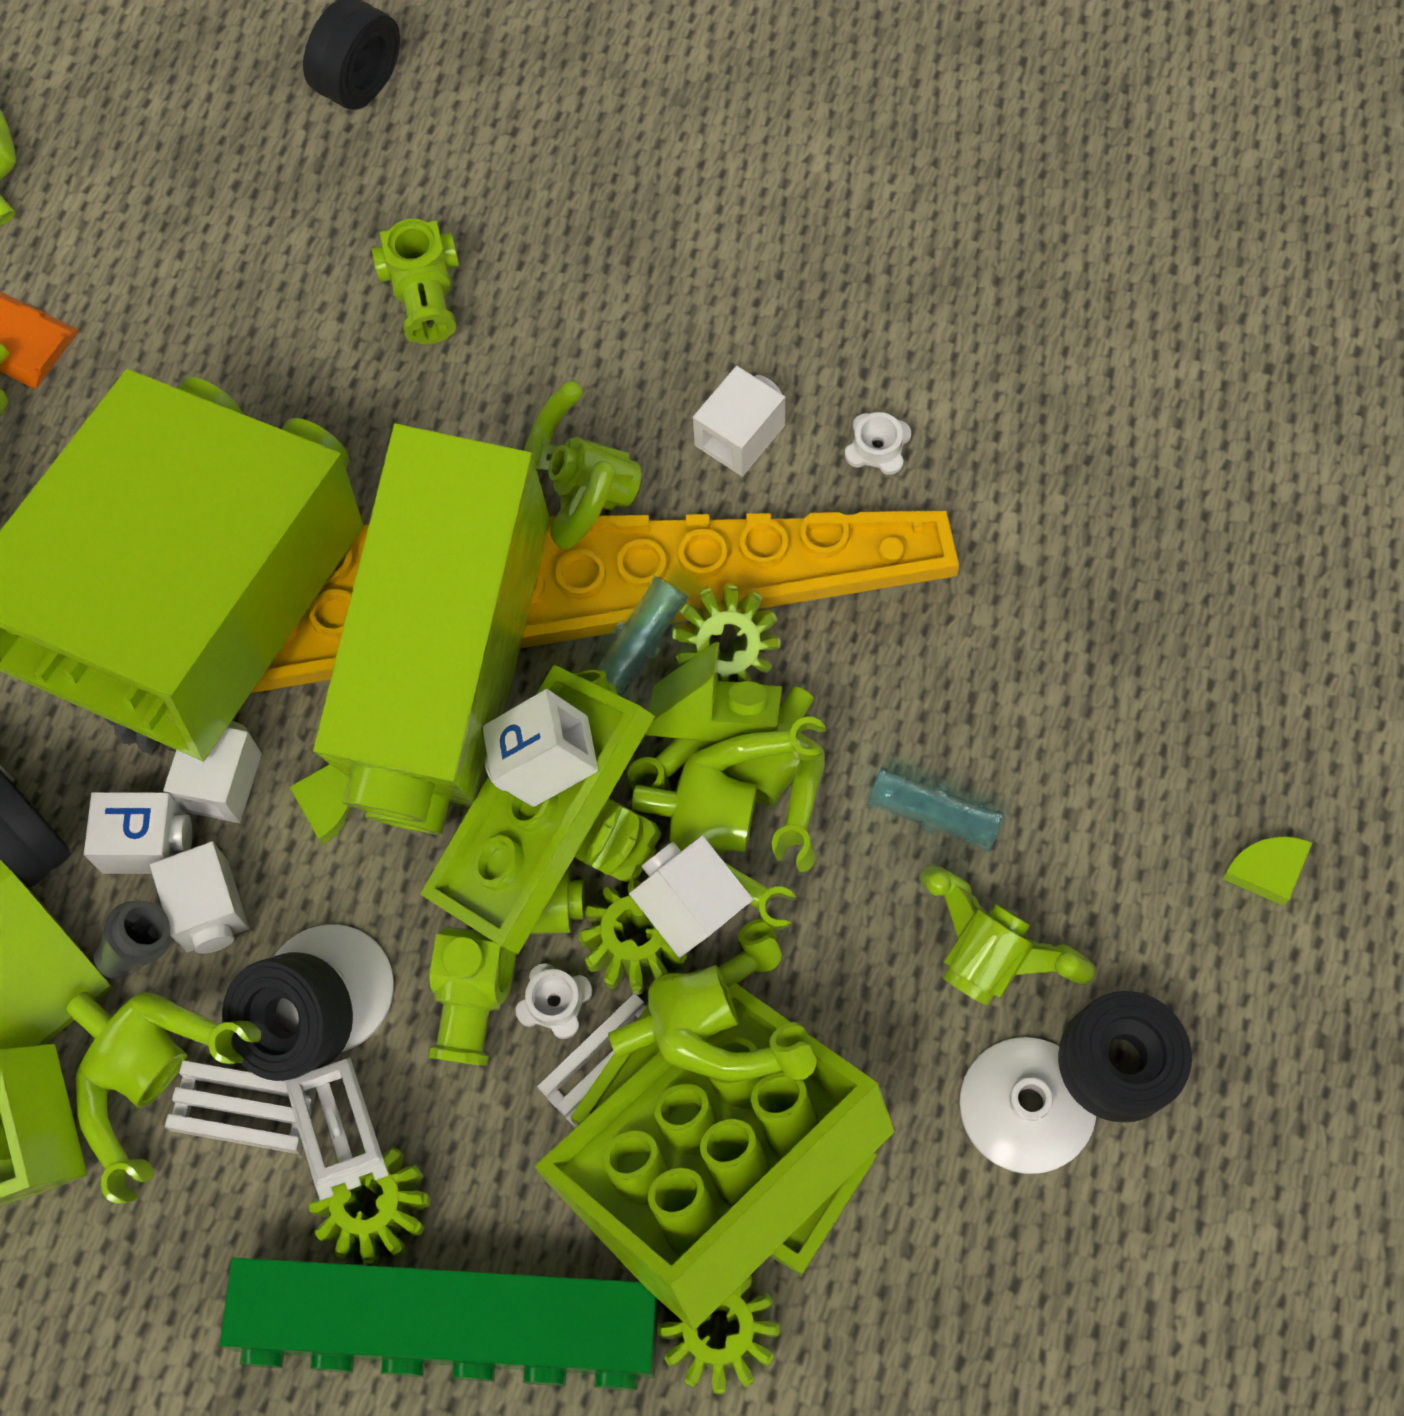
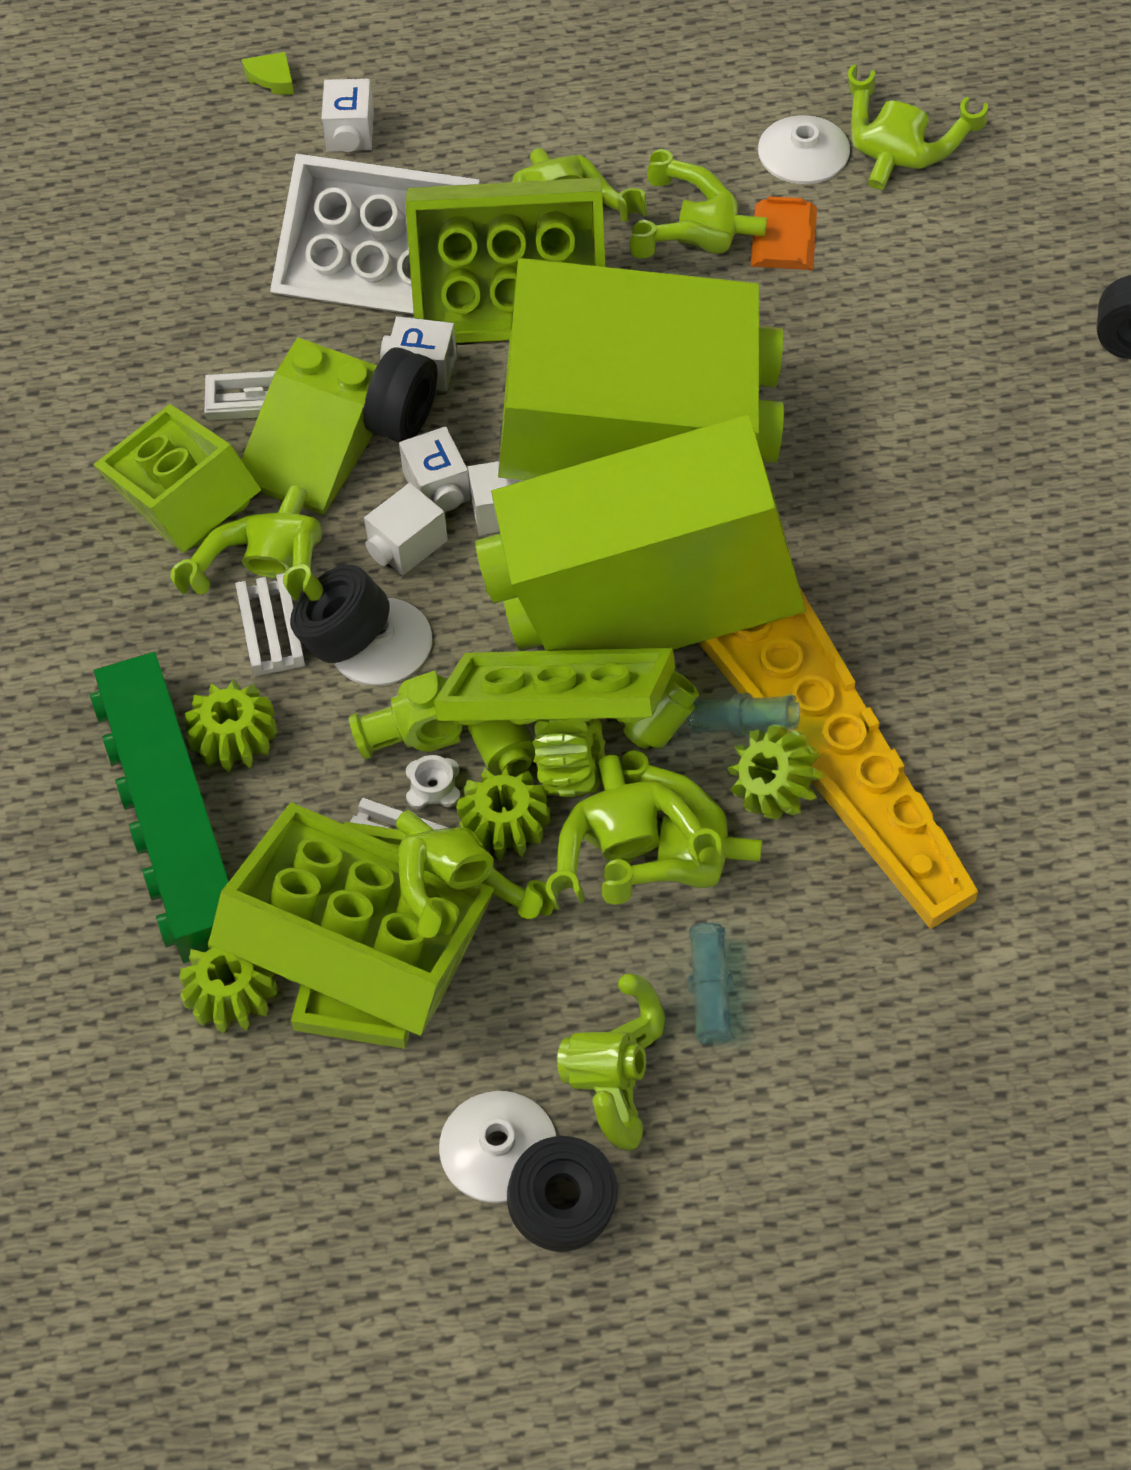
camera: 65 degrees right, 10 degrees down
(132, 938) = (361, 490): dark grey cone -> none
(348, 1168) = (277, 679): white tile -> none
(419, 279) = (984, 446): lime connector -> none
(539, 748) = (587, 652): white brick -> none
(582, 471) = (864, 619): lime piece -> none
(689, 894) = (538, 816): white brick -> none
(699, 707) = (705, 780): lime slope -> none
(740, 420) = (979, 713): white brick -> none
(880, 427) = (1019, 810): white plate -> none
(1270, 867) = (788, 1263): lime tile -> none

